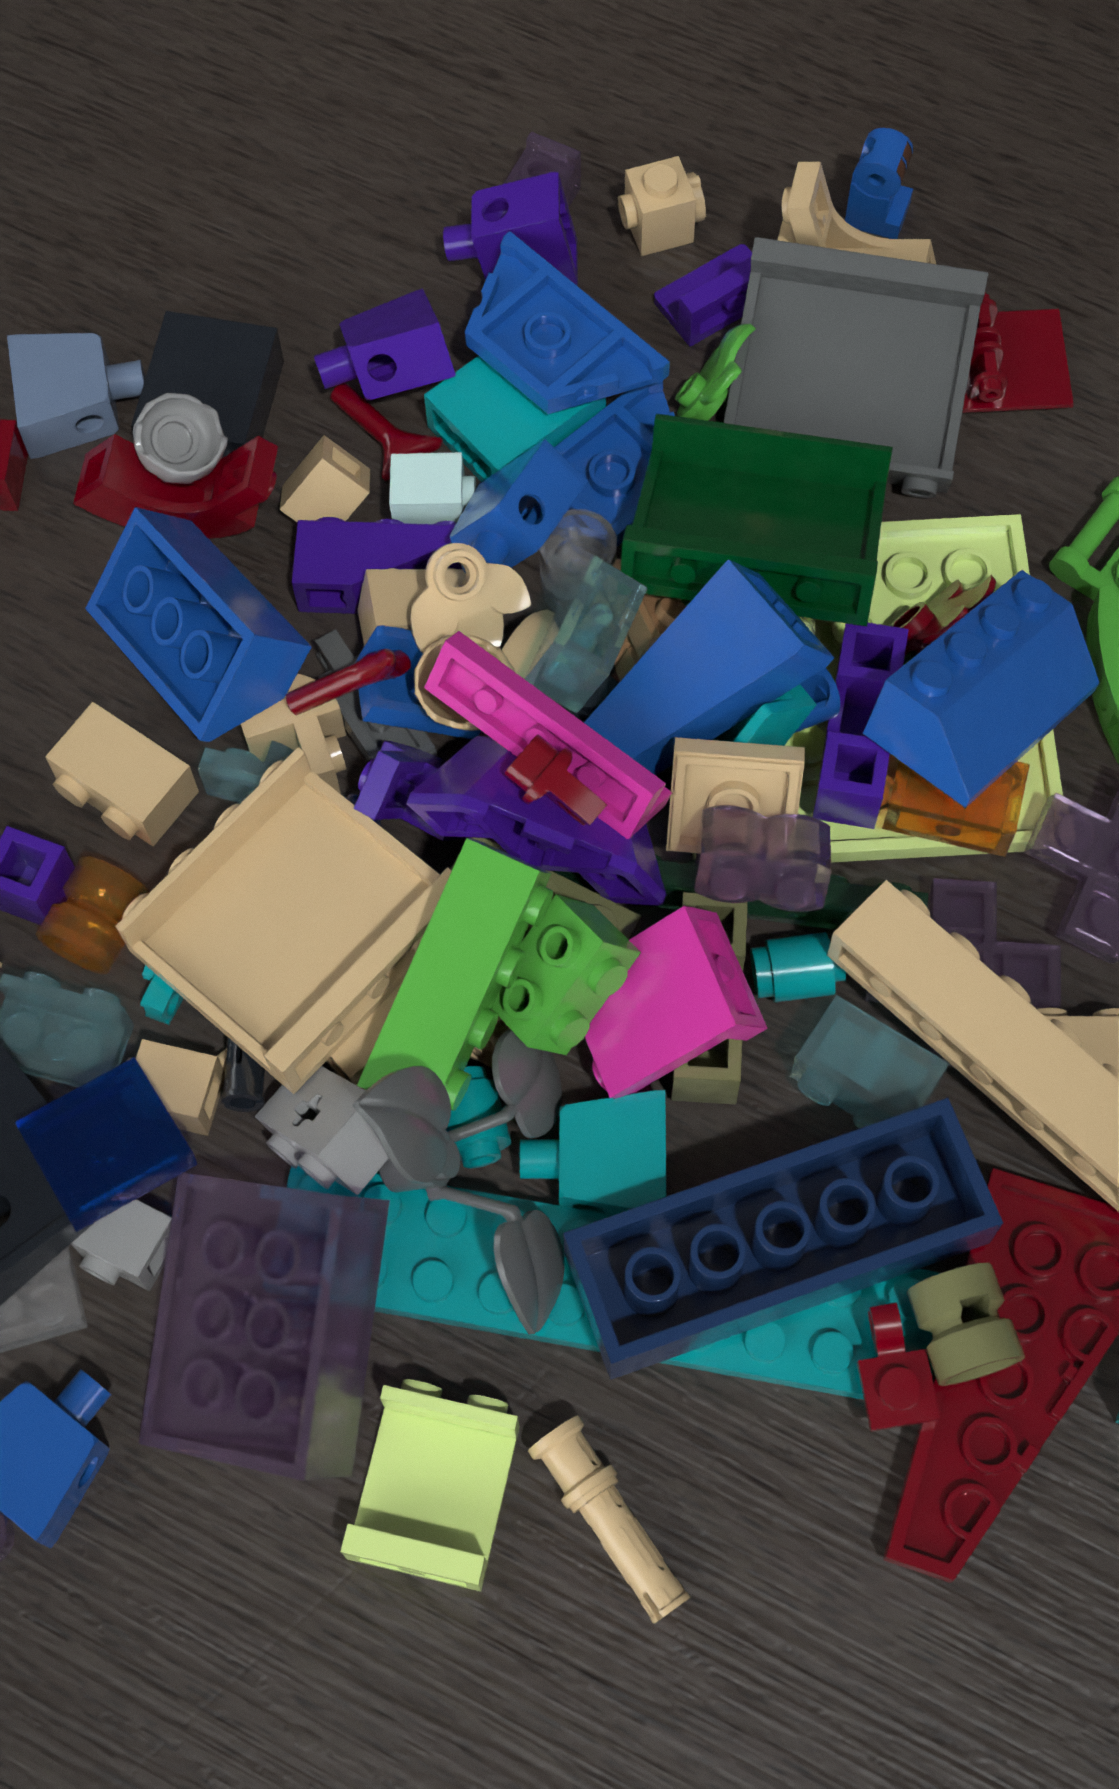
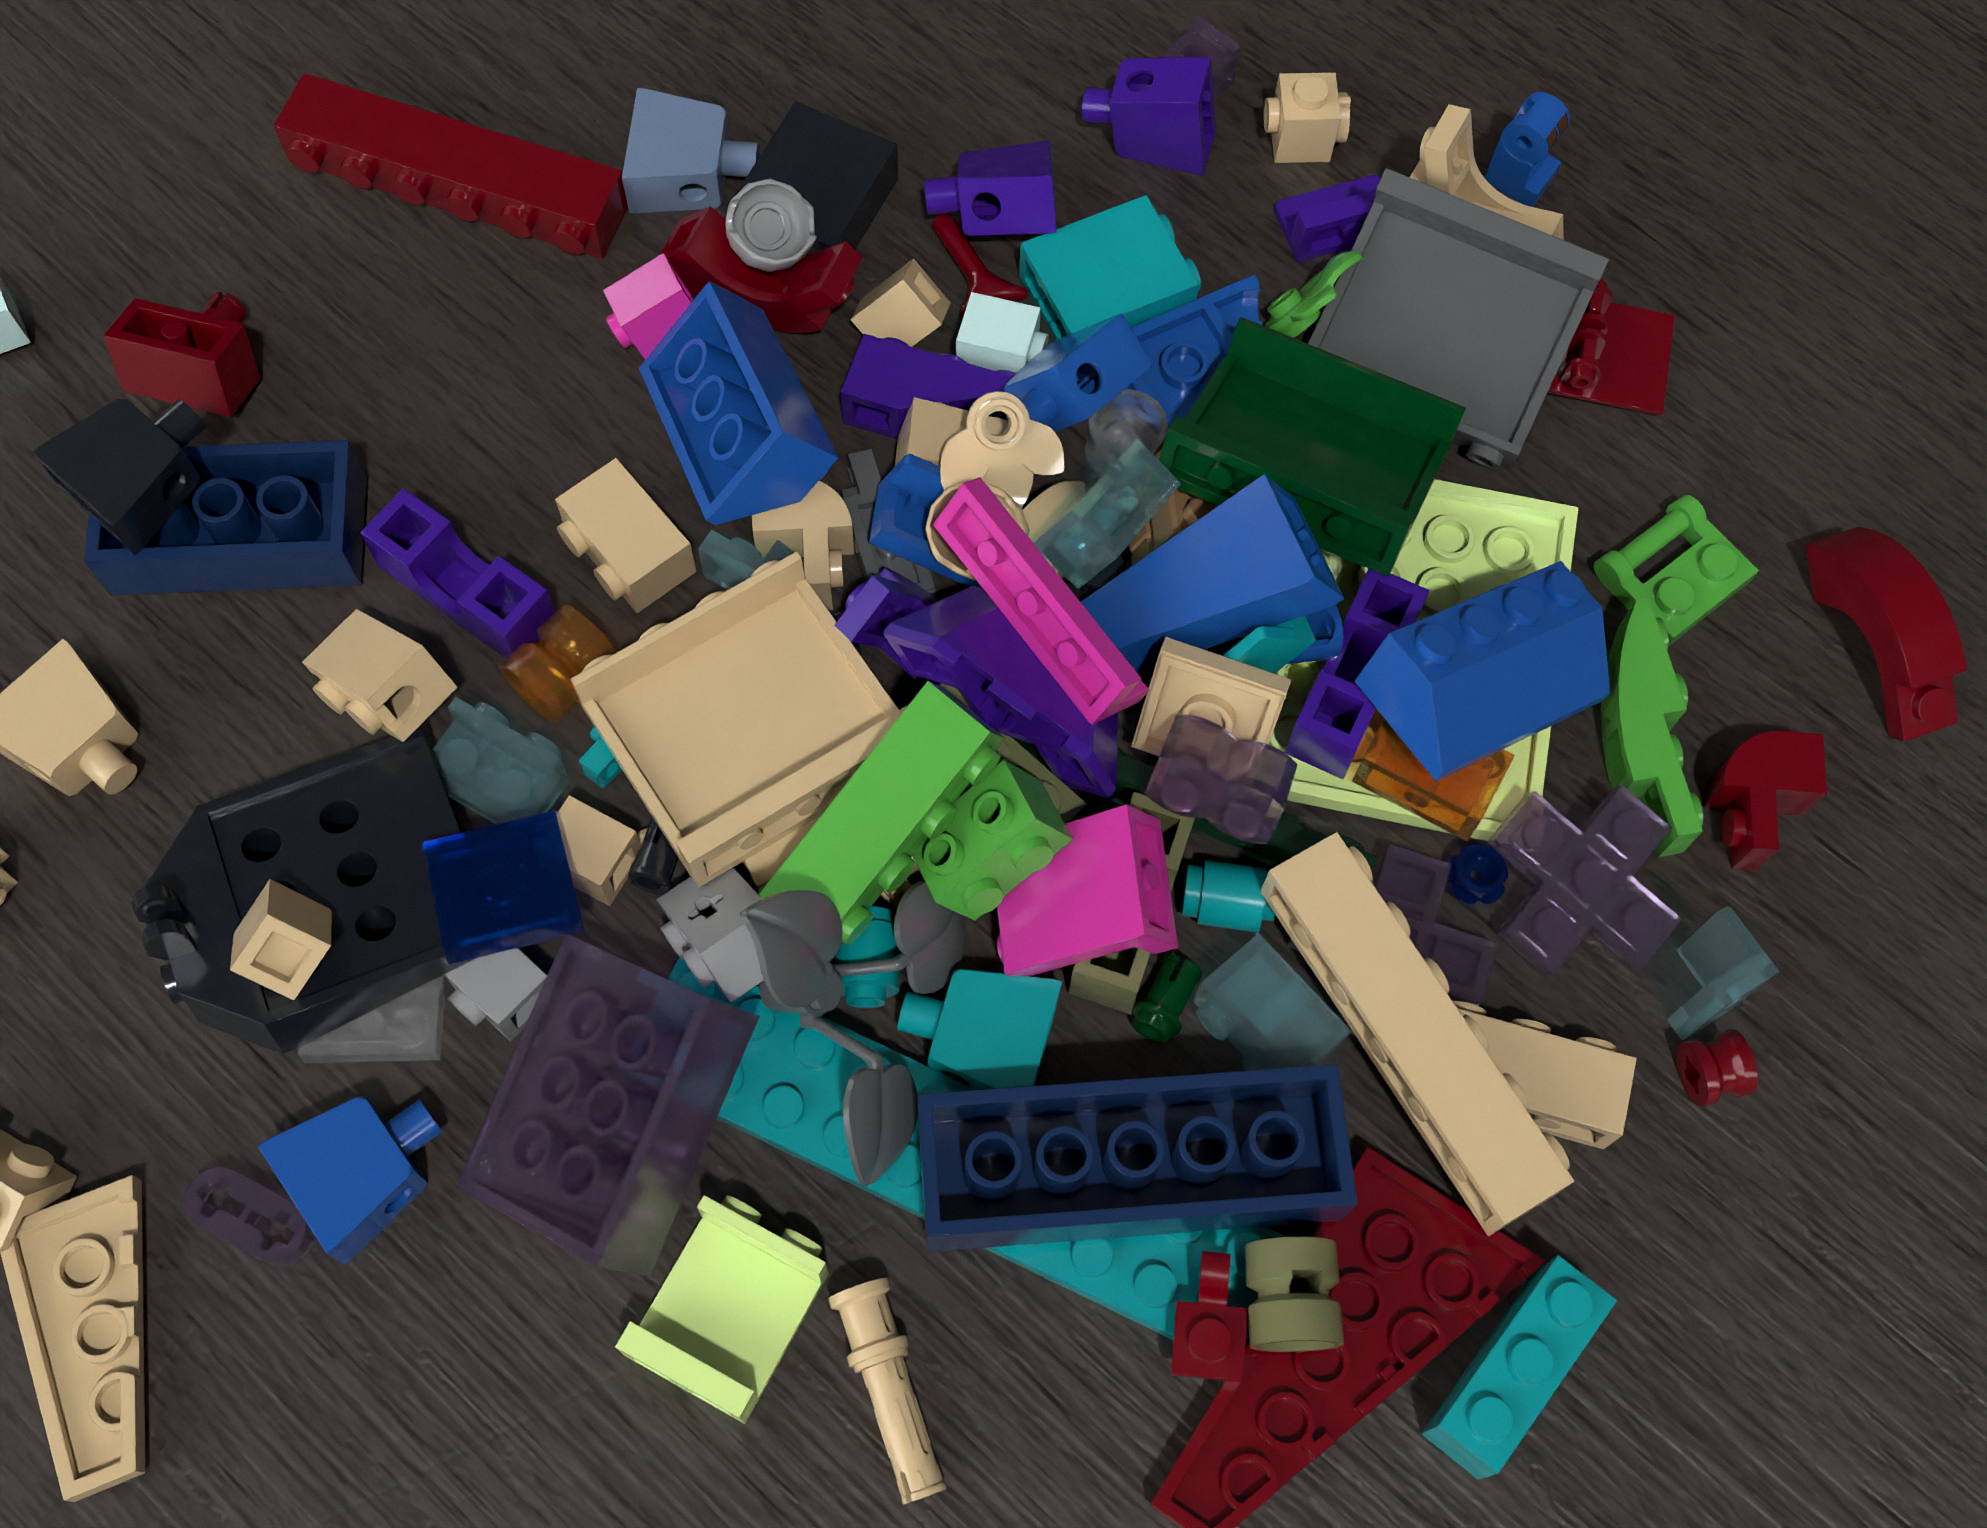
camera: 10 degrees right, 0 degrees up
(78, 545) = (647, 304): none -> dark pink brick
(372, 668) = (891, 494): dark red piece -> none
(543, 771) = (1023, 635): dark red piece -> none
(554, 335) = (1163, 217): blue wing -> none
(763, 1096) = (1160, 1011): none -> dark green pin
(931, 620) = (1451, 588): dark red plate -> none
(1031, 873) = (1486, 862): none -> clear blue plate

